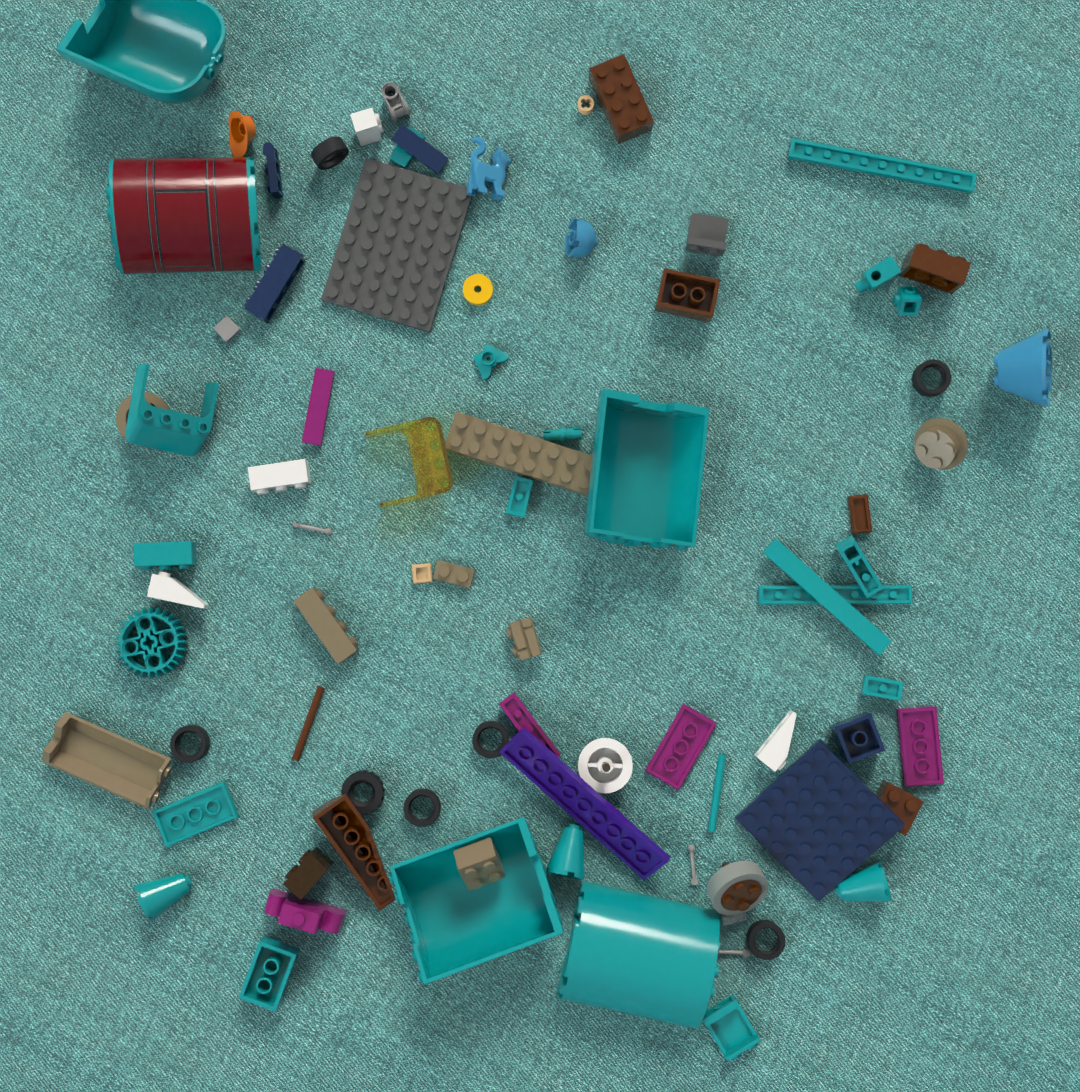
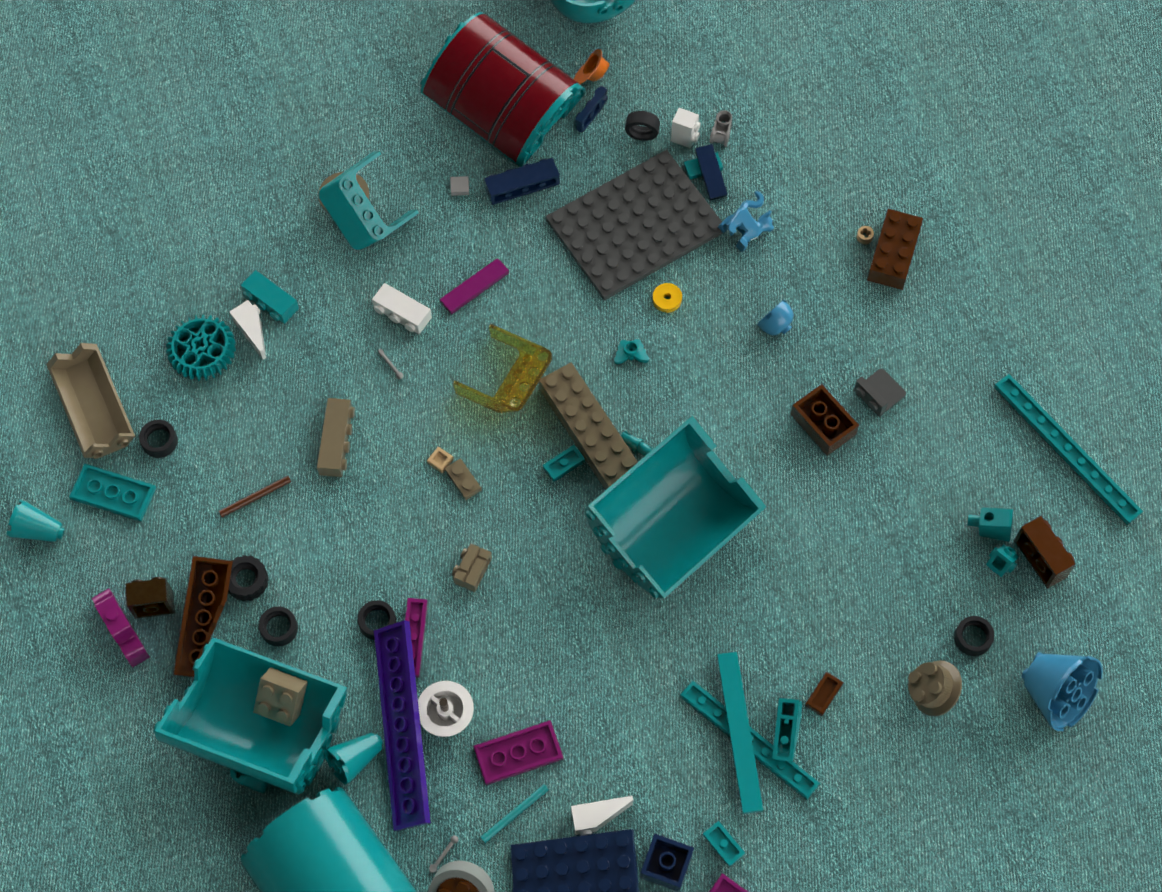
camera: 45 degrees right, 20 degrees down
(269, 973) = (50, 648): teal brick -> none

